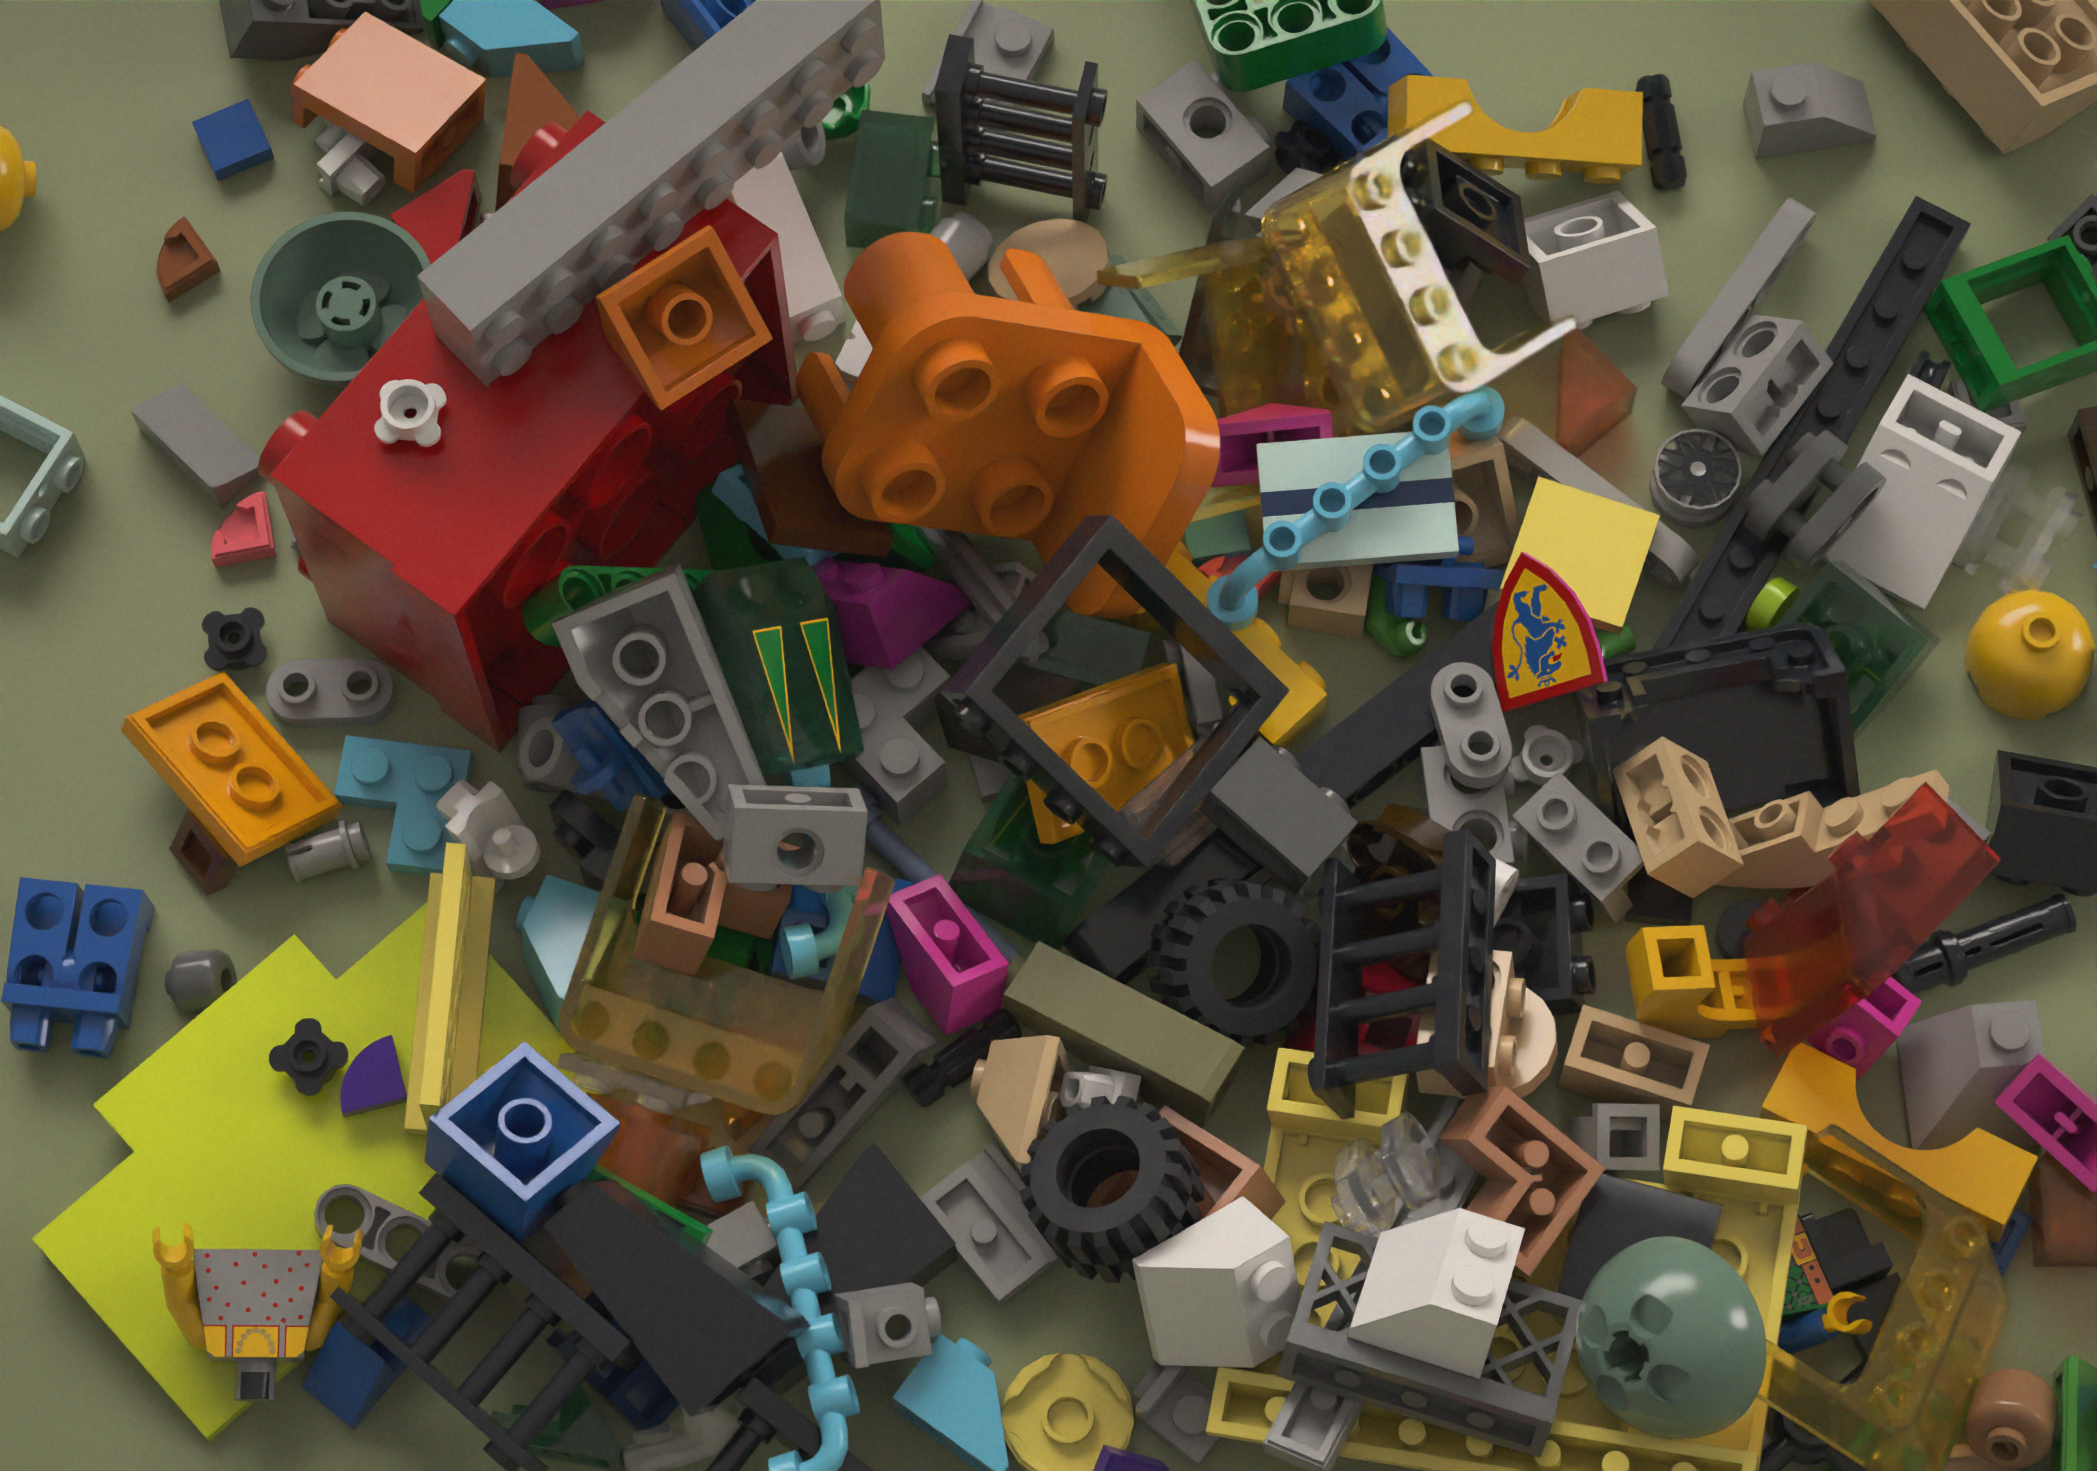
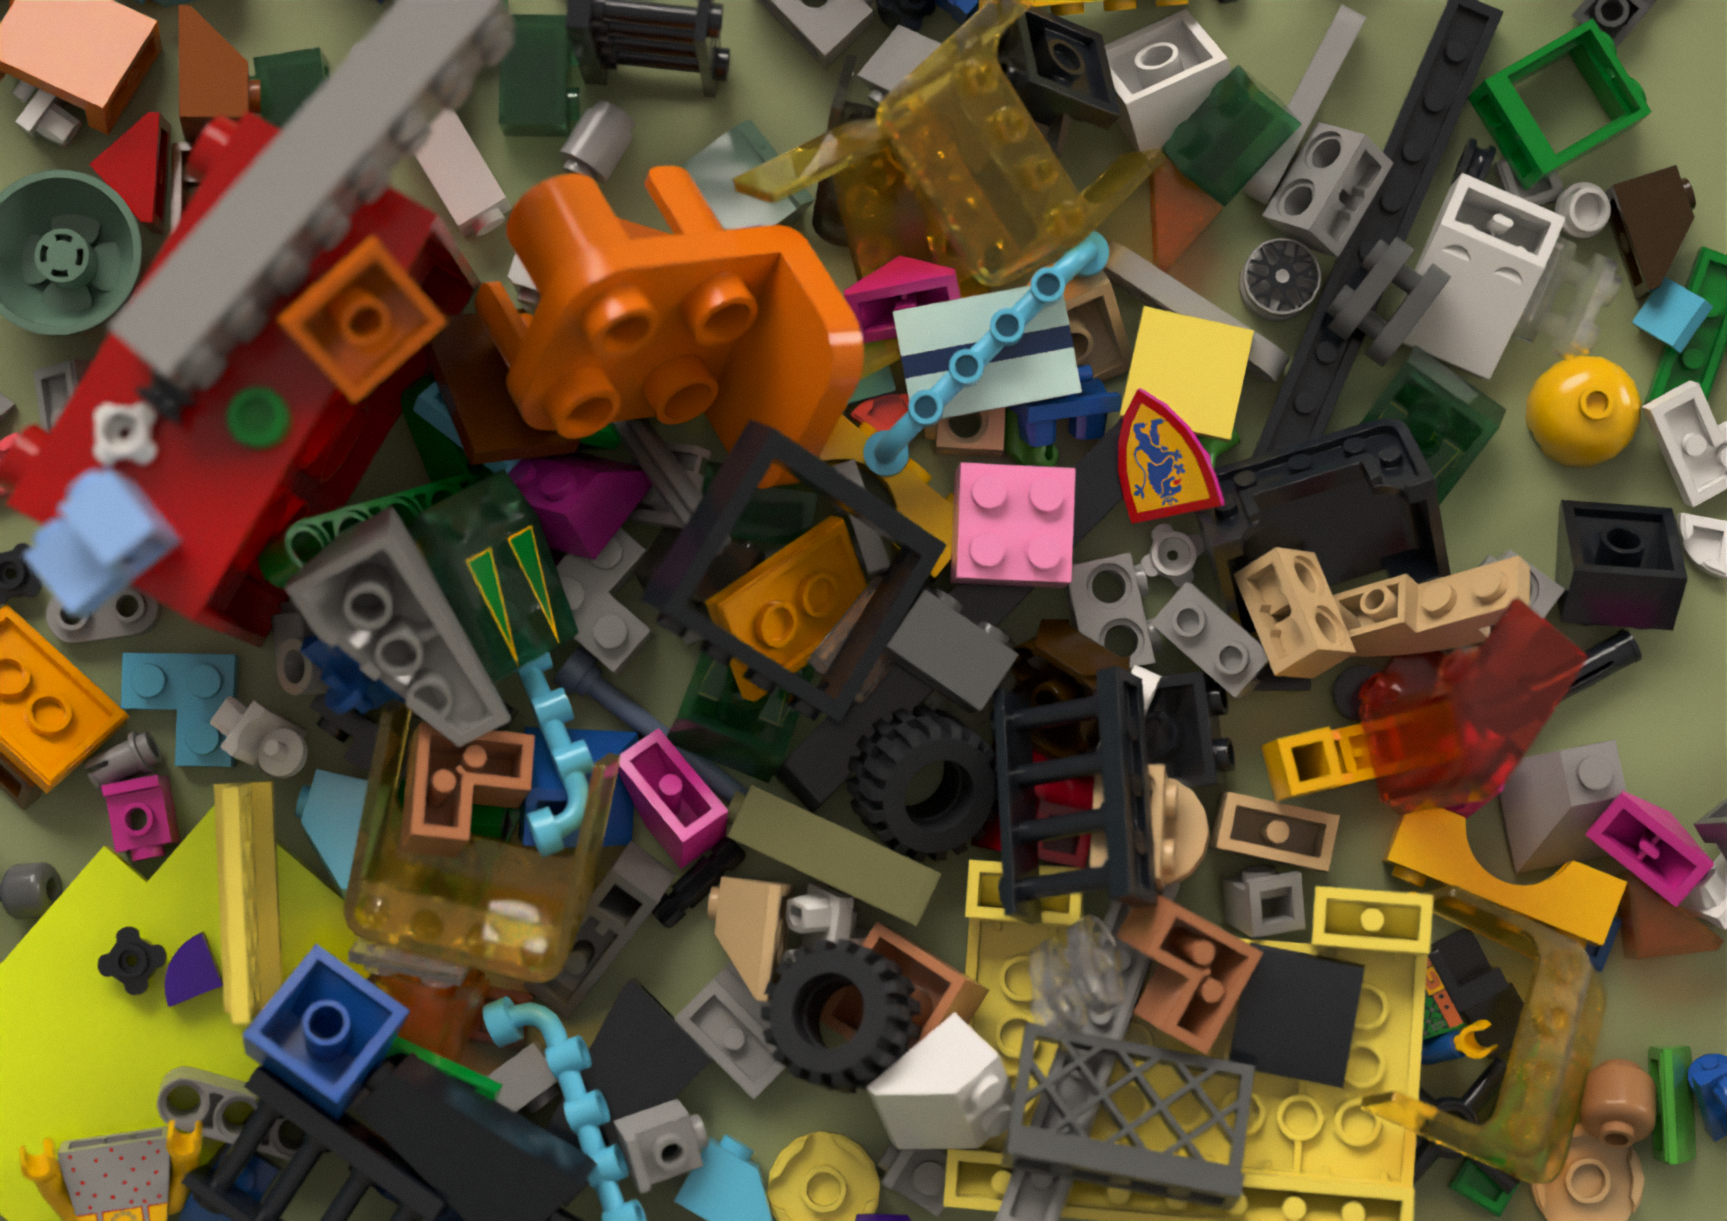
camera: 10 degrees left, 15 degrees up
(336, 886) = (154, 797): none -> dark pink brick
(375, 514) = (103, 543): none -> light blue brick
(461, 377) = (166, 397): none -> black bush
(556, 414) = (258, 418): none -> green tile
(763, 815) = (527, 741): light grey brick -> none
(1070, 250) = (693, 135): tan tile -> none
(1366, 688) = (1012, 525): none -> bright pink brick
(1438, 1289) = (1132, 1087): white slope -> none
(1468, 721) = (1107, 542): light grey plate -> none
(1653, 312) = (1231, 135): none -> clear green brick
(1671, 1339) = (1332, 1103): sand green piece -> none
(1771, 604) = (1356, 395): lime tile -> none
(2045, 441) = (1584, 208): none -> white plate

